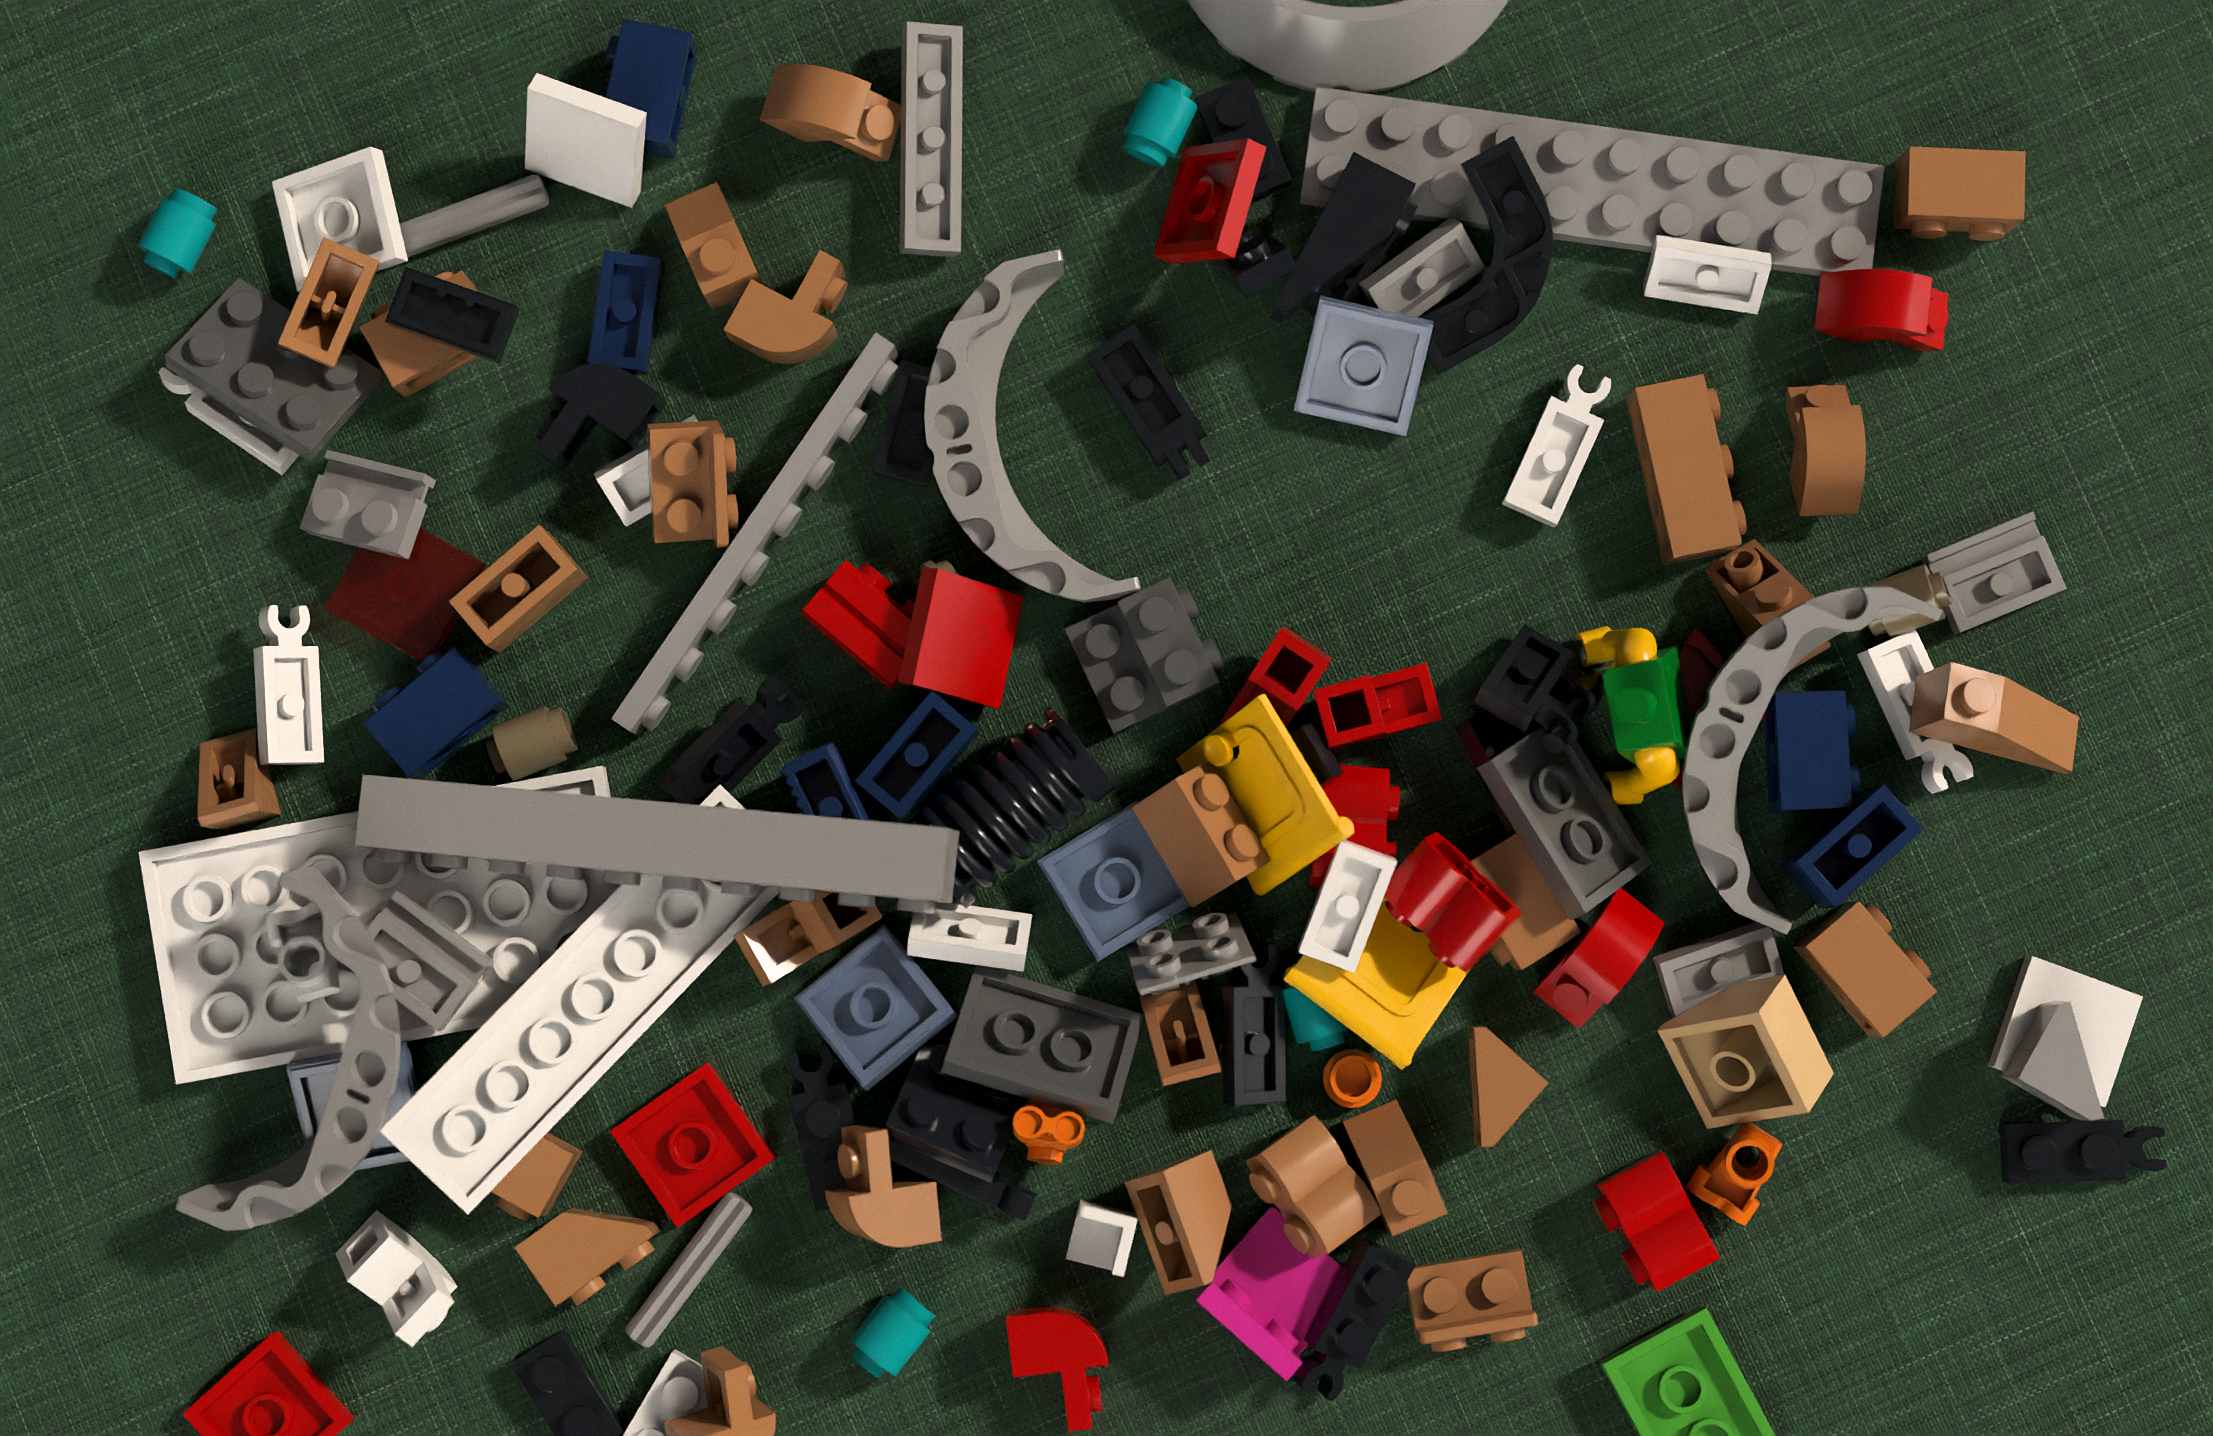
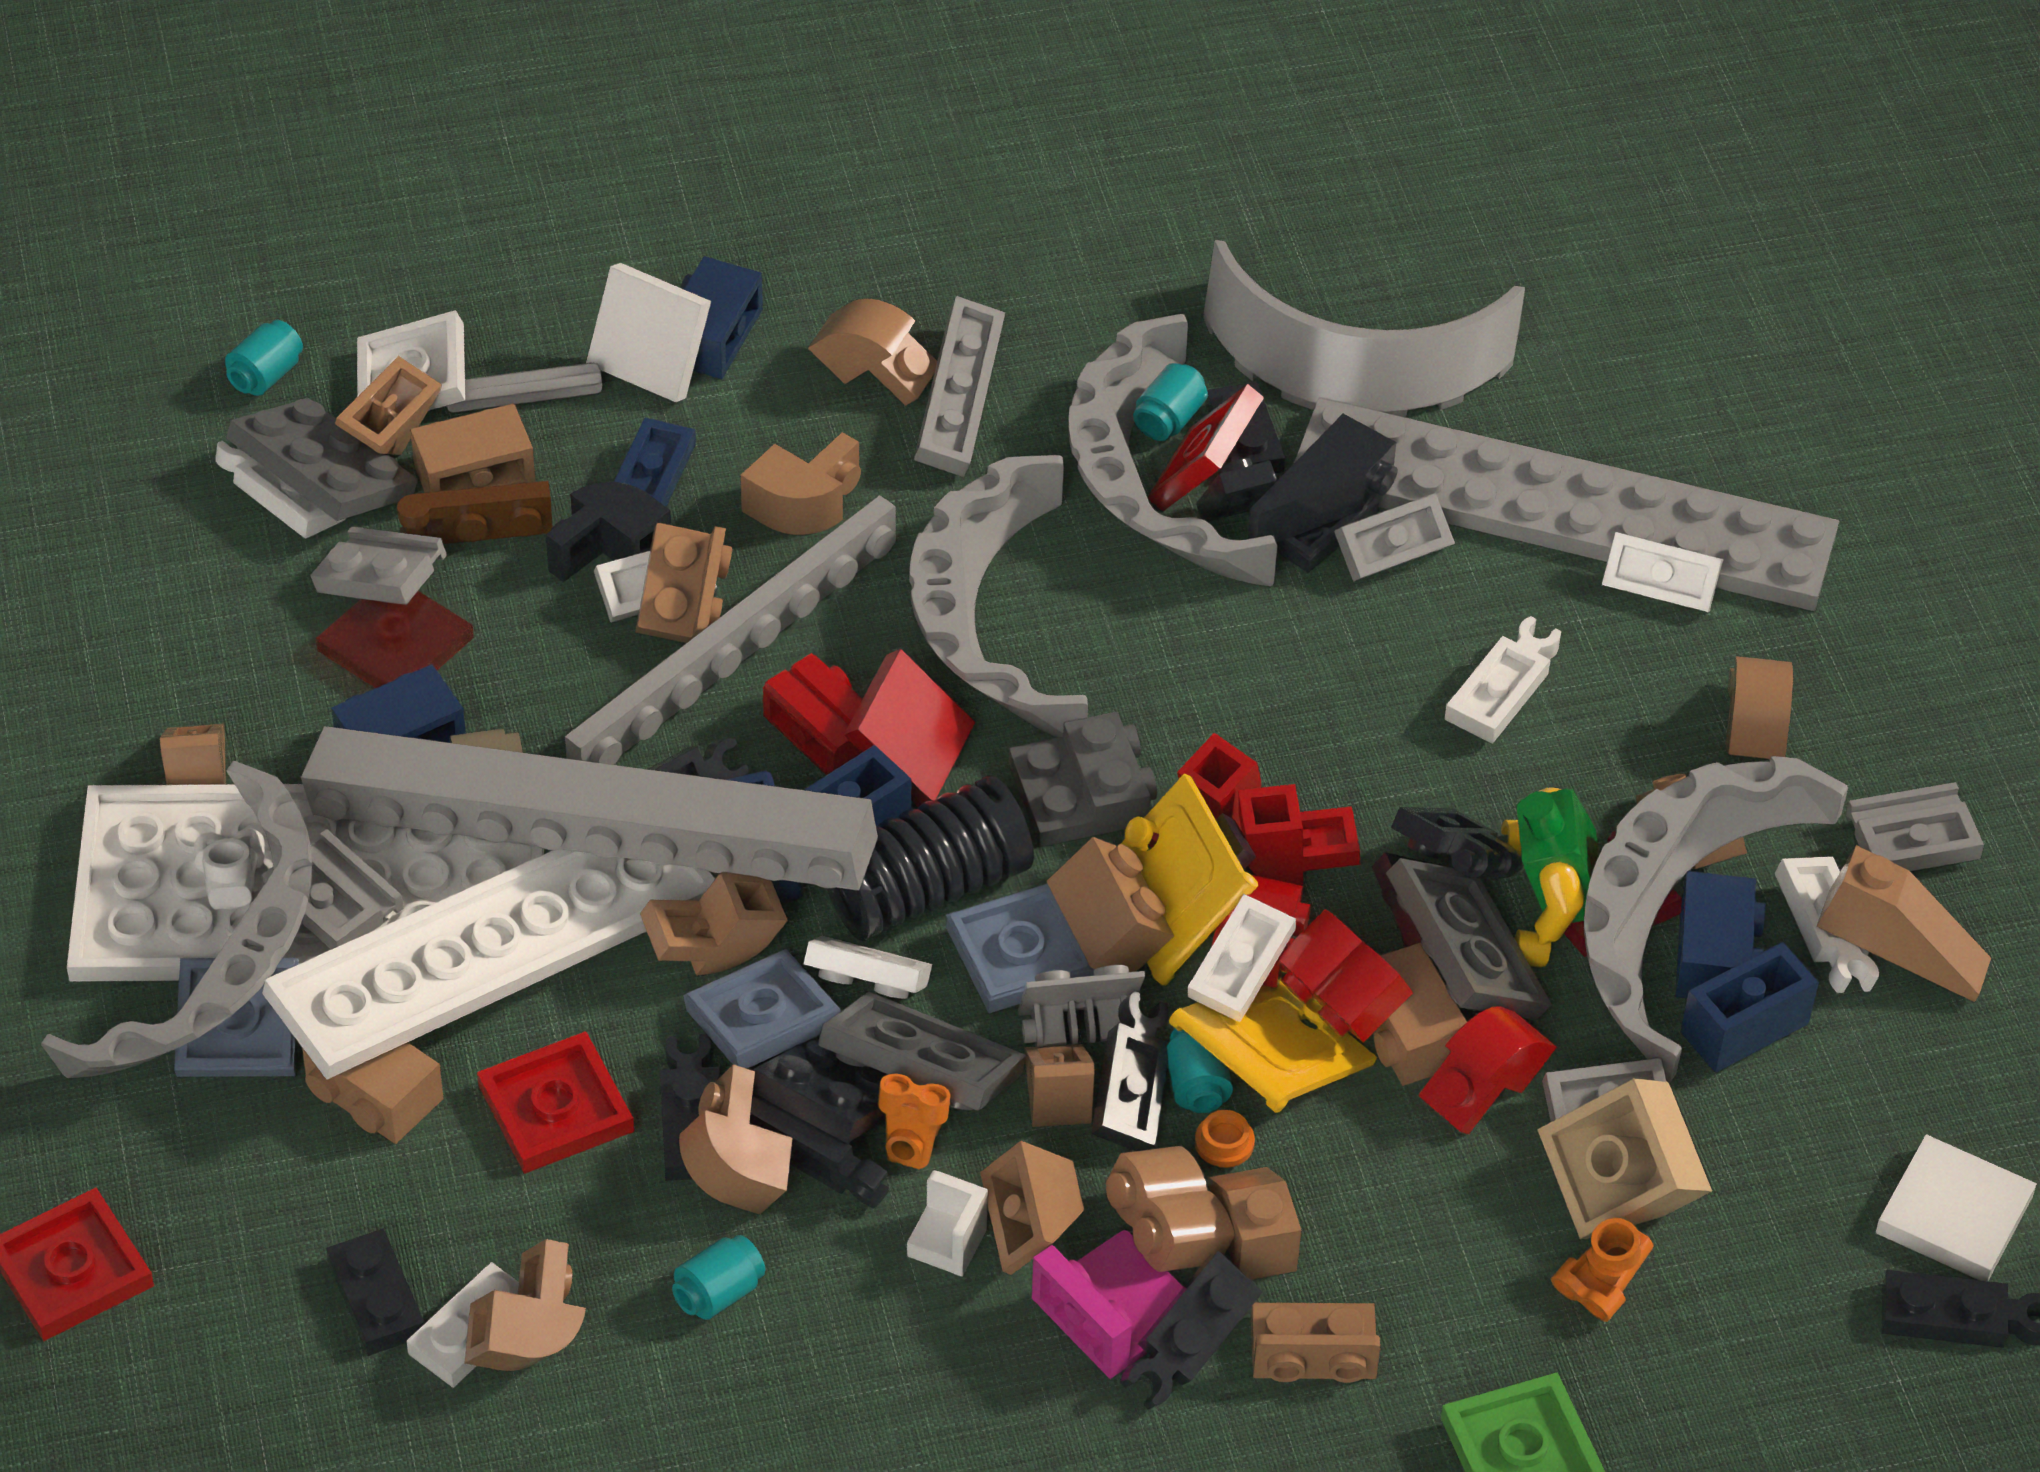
camera: 10 degrees right, 35 degrees down
(287, 692) = (263, 692): white plate -> none
(398, 1276) = (237, 1151): white brick -> none
(451, 417) = (478, 512): none -> reddish brown plate
(452, 315) = (499, 422): black plate -> none
(518, 589) = (503, 636): medium nougat brick -> none
(580, 1247) = (429, 1158): medium nougat slope -> none
(688, 1269) = (524, 1201): light grey axle -> none
(712, 245) = (743, 432): medium nougat slope -> none
(903, 442) = (887, 591): black plate -> none
(1063, 1342) = (886, 1309): red brick -> none
(1100, 221) = (1100, 437): none -> light grey windscreen
(1149, 400) = (1122, 593): black hinge -> none
(1363, 365) = (1328, 591): sand blue plate -> none
(1499, 1085) = (1378, 1158): medium nougat slope -> none
(1517, 261) = (1478, 541): black plate -> none
(1655, 1222) = (1514, 1295): red brick -> none
(1685, 469) = (1623, 709): medium nougat brick -> none
(1866, 968) = (1754, 1117): medium nougat brick -> none
(1882, 306) = (1825, 603): red brick -> none
(1920, 585) = (1827, 839): dark tan brick -> none
(1959, 192) = (1907, 544): medium nougat brick -> none
(2054, 1063) = (1935, 1211): light grey slope -> none

